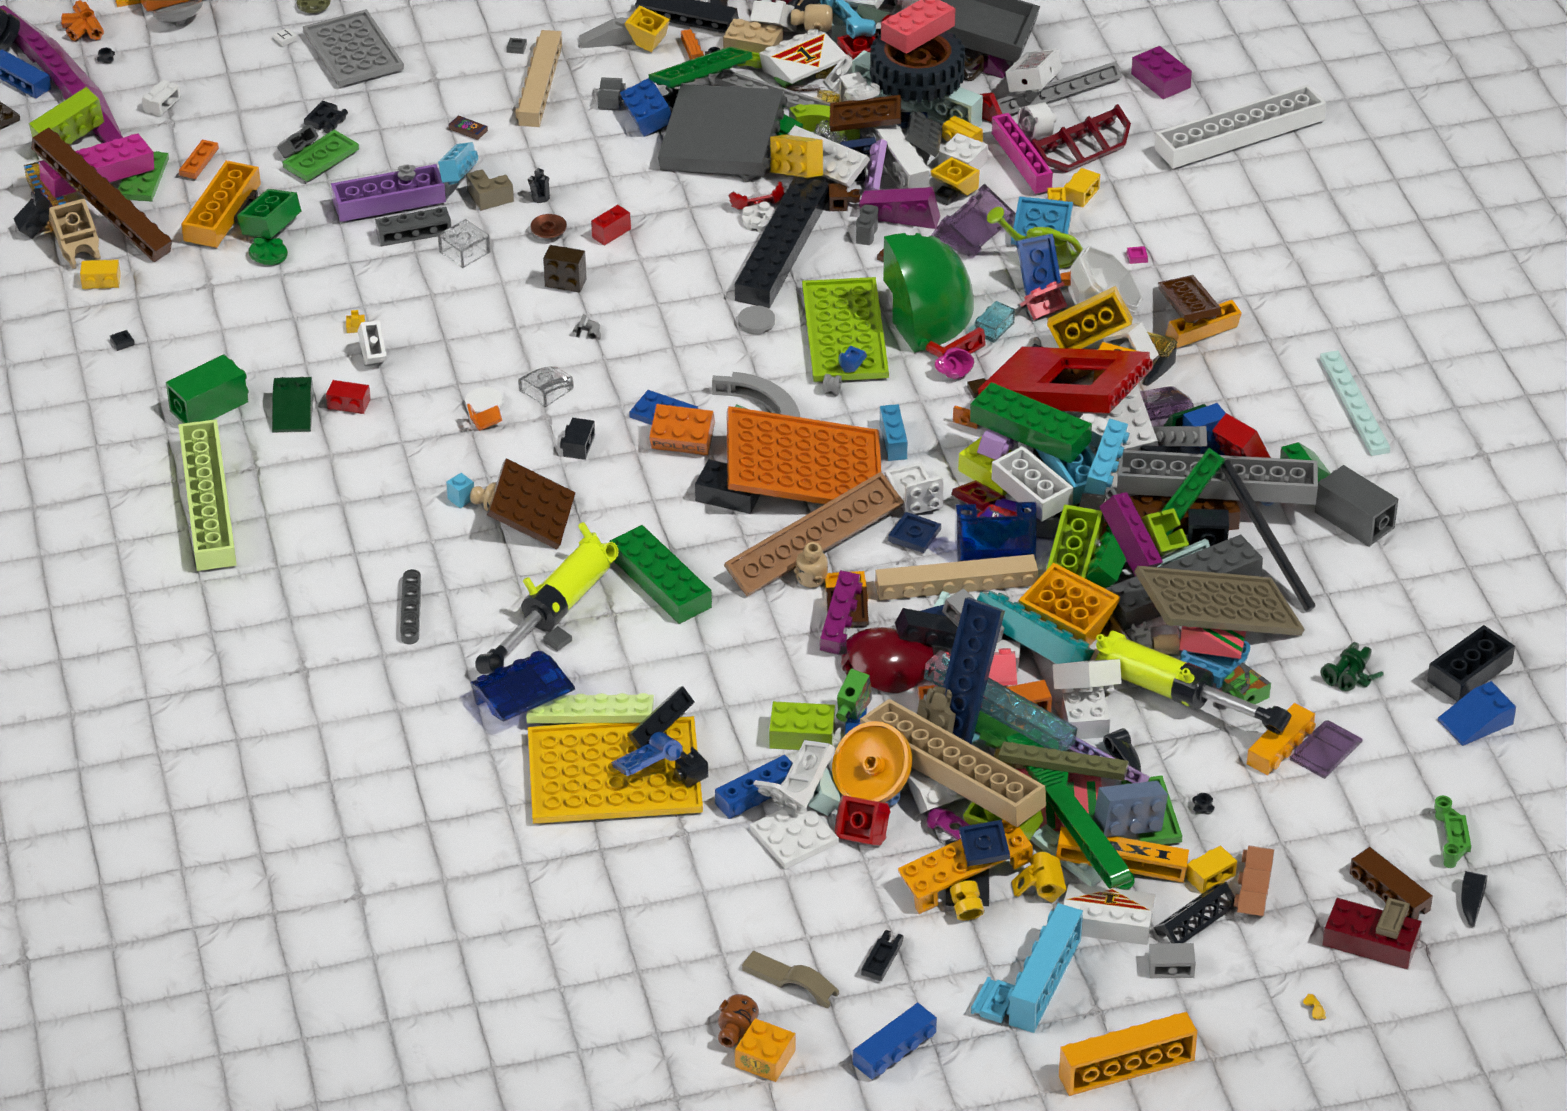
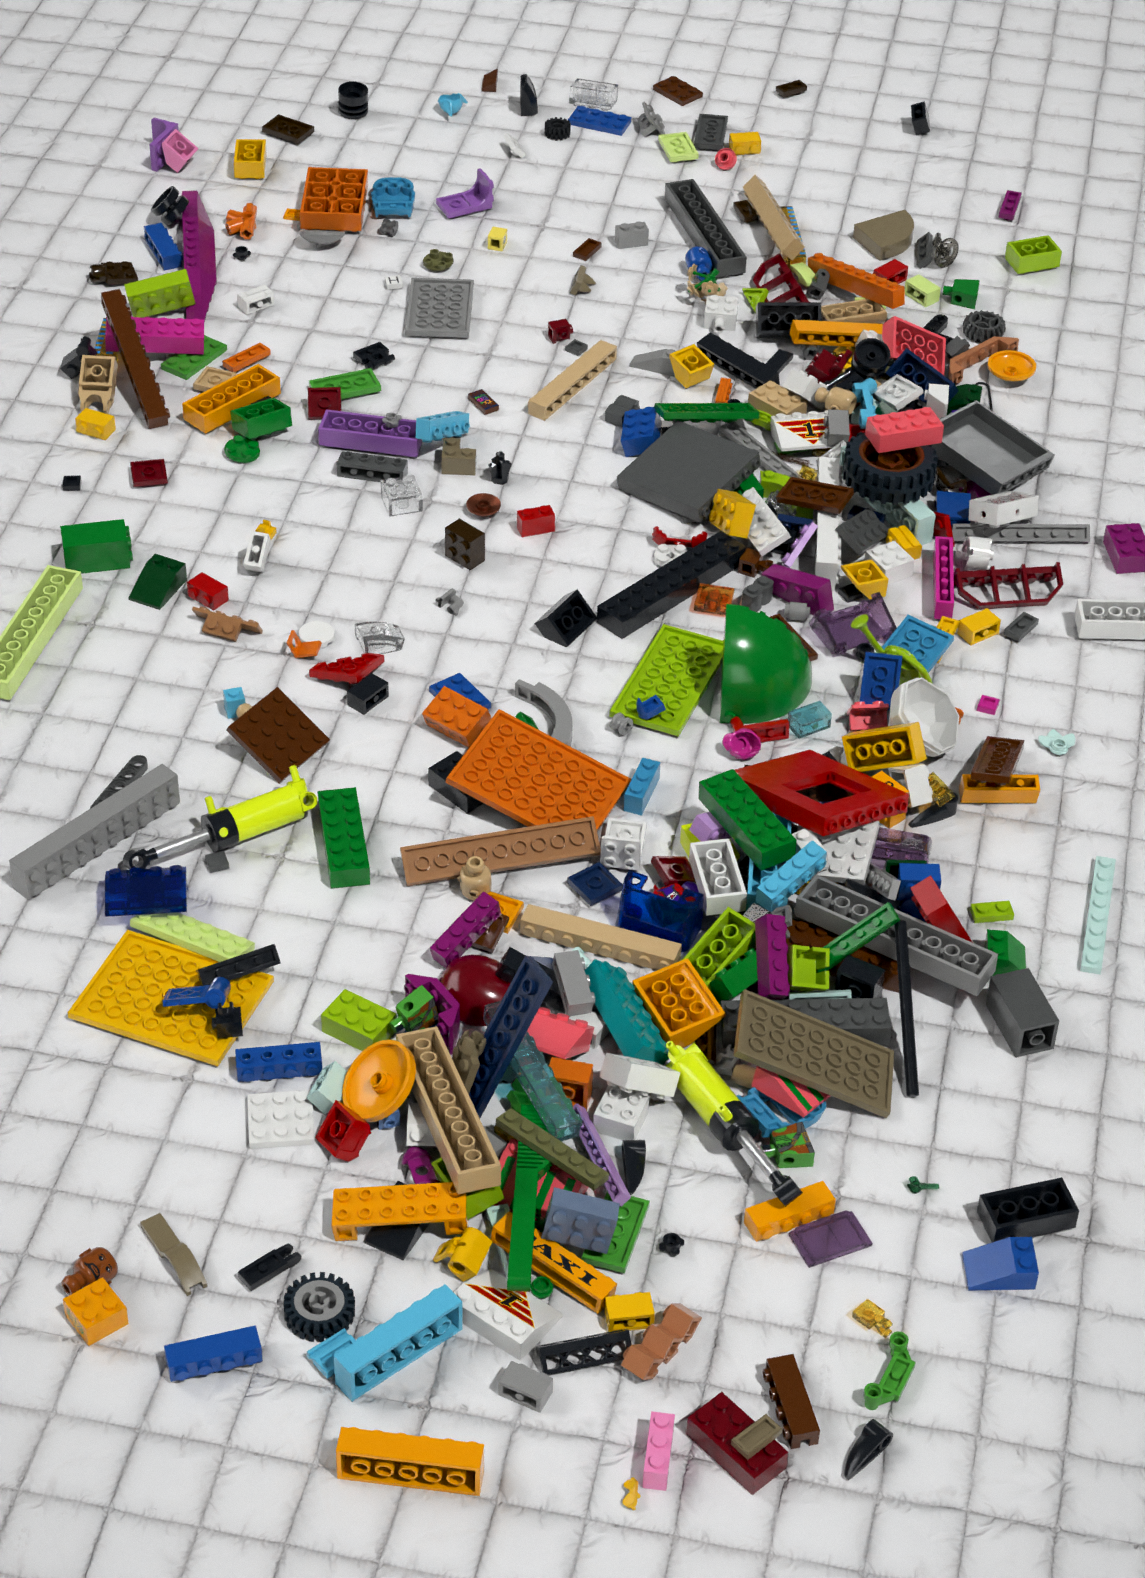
camera: 25 degrees right, 0 degrees up
(184, 192) = (211, 377): none -> tan plate
(193, 304) = (148, 472): none -> dark red plate
(297, 141) = (332, 367): dark grey brick -> none
(315, 178) = (321, 399): none -> dark red plate
(389, 424) = (224, 626): none -> medium nougat bracket
(429, 652) = (94, 831): none -> light grey brick
(489, 33) = (559, 330): none -> dark red brick
(536, 424) = (347, 669): none -> red plate
(709, 306) = (566, 619): none -> black slope
(756, 319) = (600, 644): light grey tile -> none
(802, 777) = (305, 1077): white bracket -> none
(829, 242) = (713, 598): none -> clear orange plate
(833, 43) = (837, 427): none -> light grey brick
(862, 91) = (825, 475): white tile -> none
(882, 682) = (446, 1005): none -> magenta slope
(912, 226) = (796, 611): none -> light grey brick
(964, 977) = (318, 1294): none -> wheel
(967, 900) = (377, 1250): yellow wheel -> none
(984, 843) = (418, 1197): dark blue plate -> none
(985, 81) = (954, 505): none -> blue panel
(997, 243) = (862, 648): none -> black plate
(1117, 175) = (1021, 626): none -> dark grey plate
(1222, 268) = (1057, 743): none -> light aqua plate
(1271, 430) = (992, 911): none -> lime plate
(1315, 964) = (658, 1451): none -> bright pink brick
(1350, 657) = (918, 1158): dark green piece -> none
(1405, 794) = (872, 1315): none -> clear yellow plate

